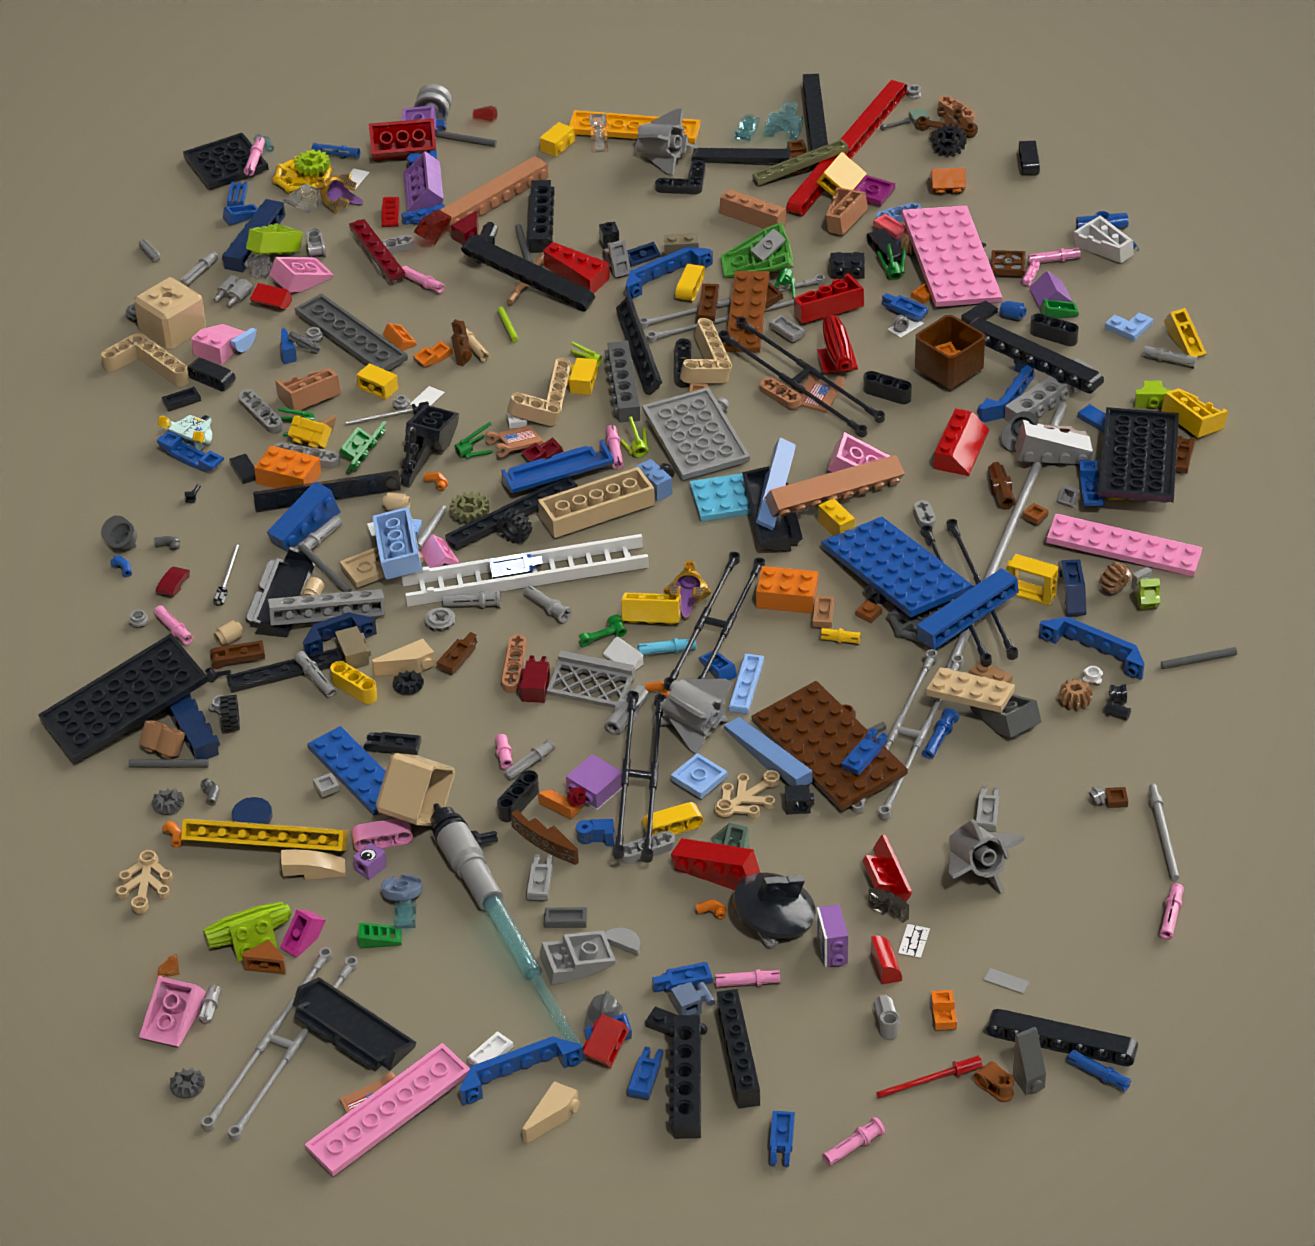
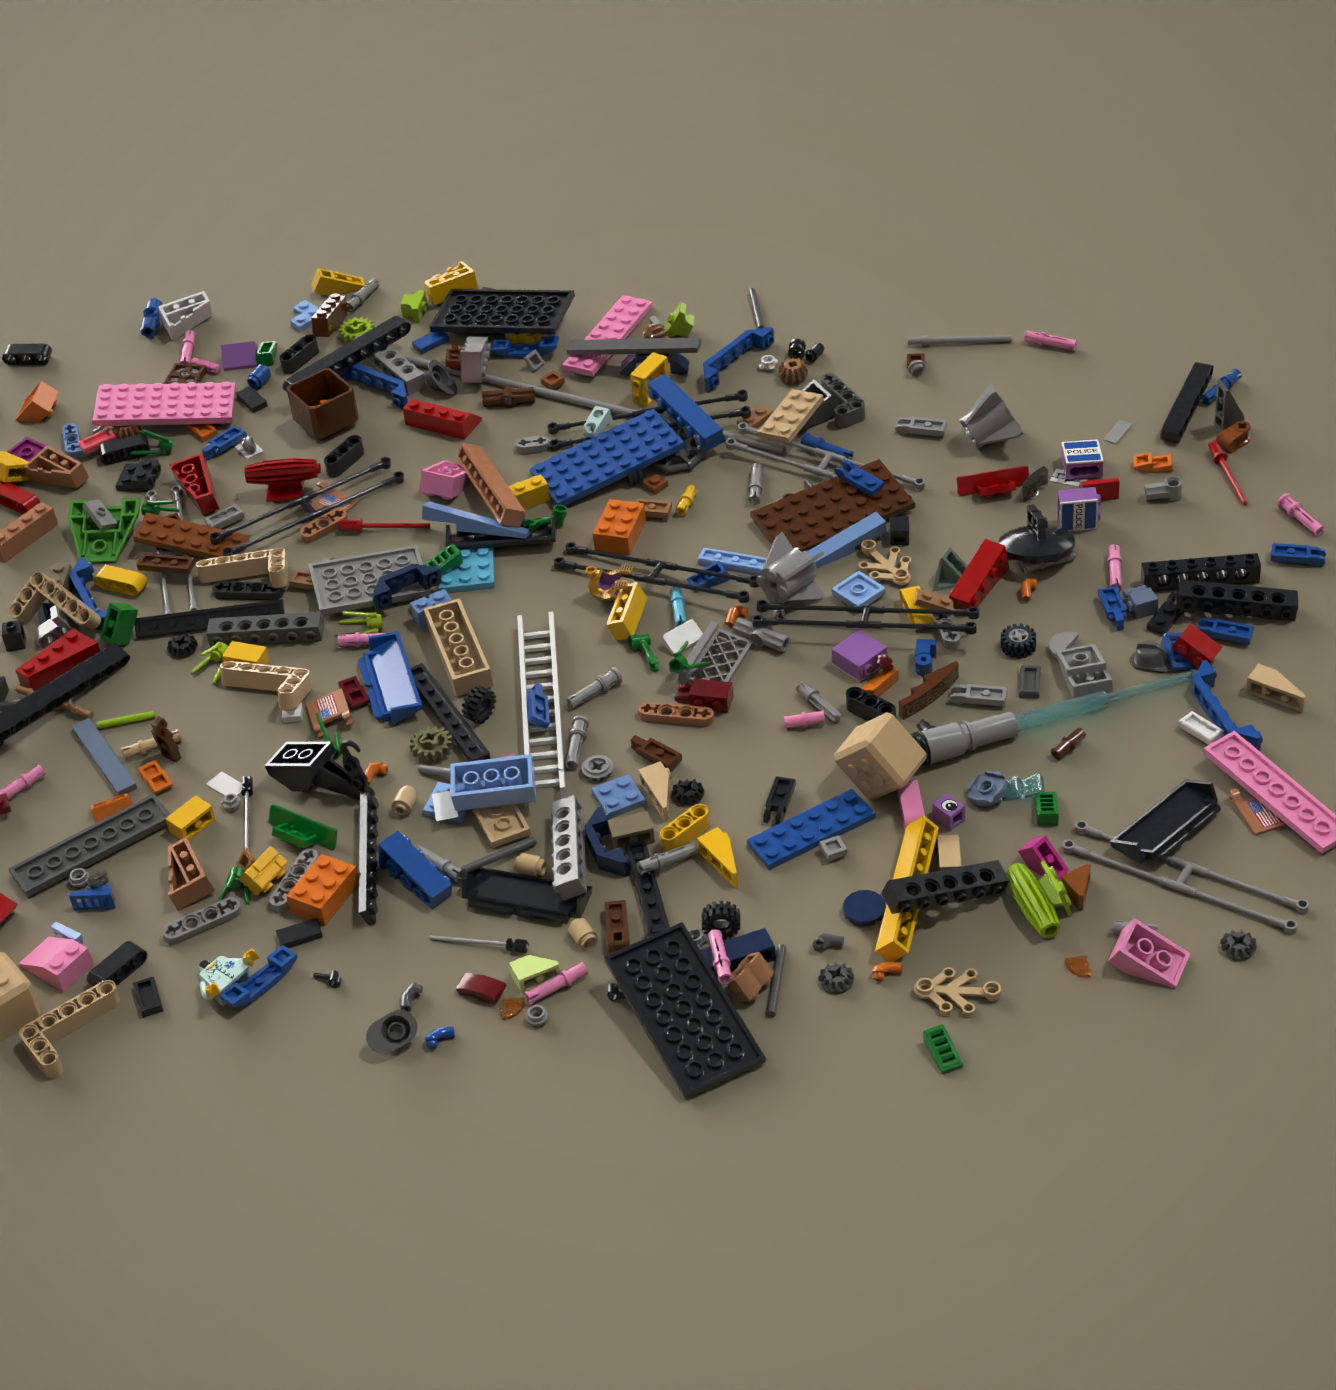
camera: 80 degrees left, 0 degrees up
(86, 872) = (936, 1036): none -> green slope
(150, 603) = (512, 1007): none -> clear orange tile
(175, 710) = (716, 942): none -> bright pink pin
(183, 606) = (532, 971): none -> yellowish green slope
(228, 809) = (945, 887): none -> black brick
(317, 710) = (717, 850): none -> yellow slope
(402, 634) = (618, 796): none -> medium blue plate
(467, 947) = (1068, 743): none -> reddish brown axle
(469, 316) = (104, 757): none -> sand blue tile
(560, 645) = (680, 663): none -> green plant
(598, 337) = (185, 649): none -> black gear
(616, 288) = (119, 623): none -> green brick
(624, 903) = (1018, 641): none -> black wheel
(647, 237) = (42, 587): none -> tan beam
(663, 437) = (425, 575): none -> dark blue slope
(669, 826) = (929, 600): none -> medium nougat plate
(719, 474) = (448, 557): none -> green slope
(781, 416) = (358, 525): none -> red piece
(801, 542) = (559, 513): none -> green brick
(871, 684) = (755, 486): none -> light grey pin
(935, 942) = (1082, 459): none -> piece
(948, 548) = (596, 423): none -> light aqua leg
(1014, 747) = (850, 408): none -> dark grey beam
(1076, 555) = (633, 346): none -> dark grey tile
(1103, 360) = (354, 328): none -> lime gear
(1110, 334) = (329, 316): none -> reddish brown brick

